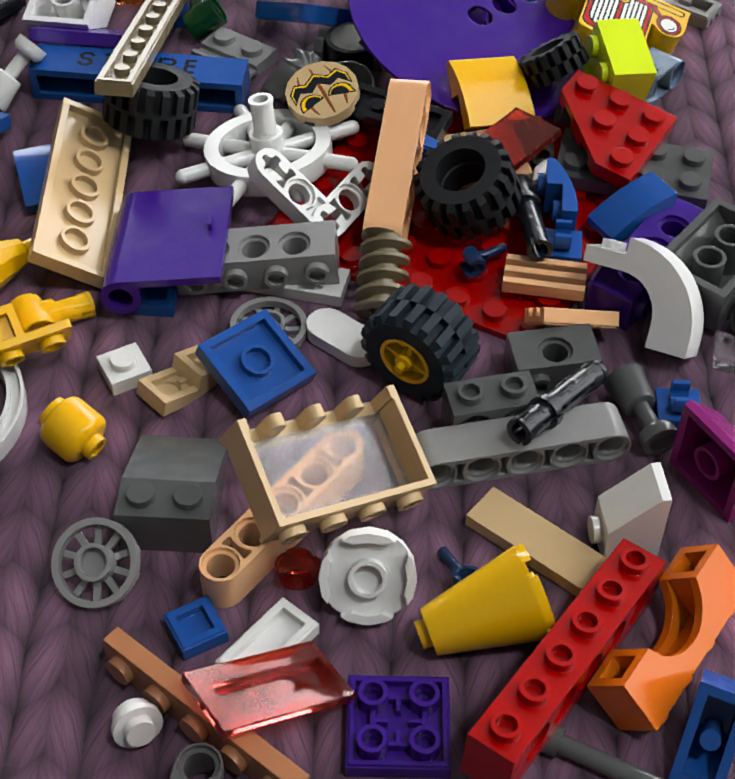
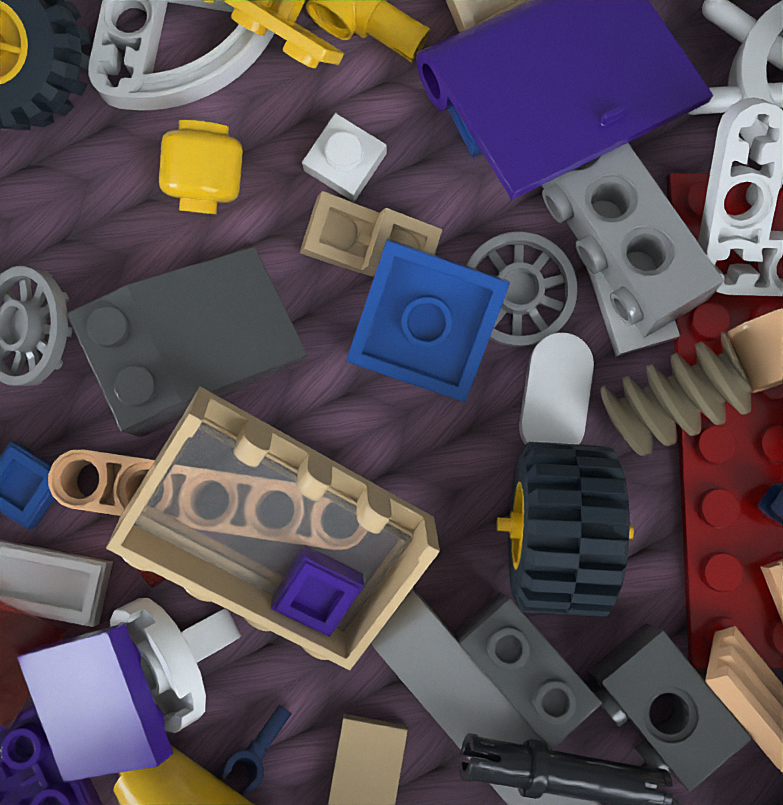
camera: 60 degrees right, 35 degrees up
(370, 615) = (96, 704): none -> tile
(377, 470) = (317, 591): none -> dark purple tile

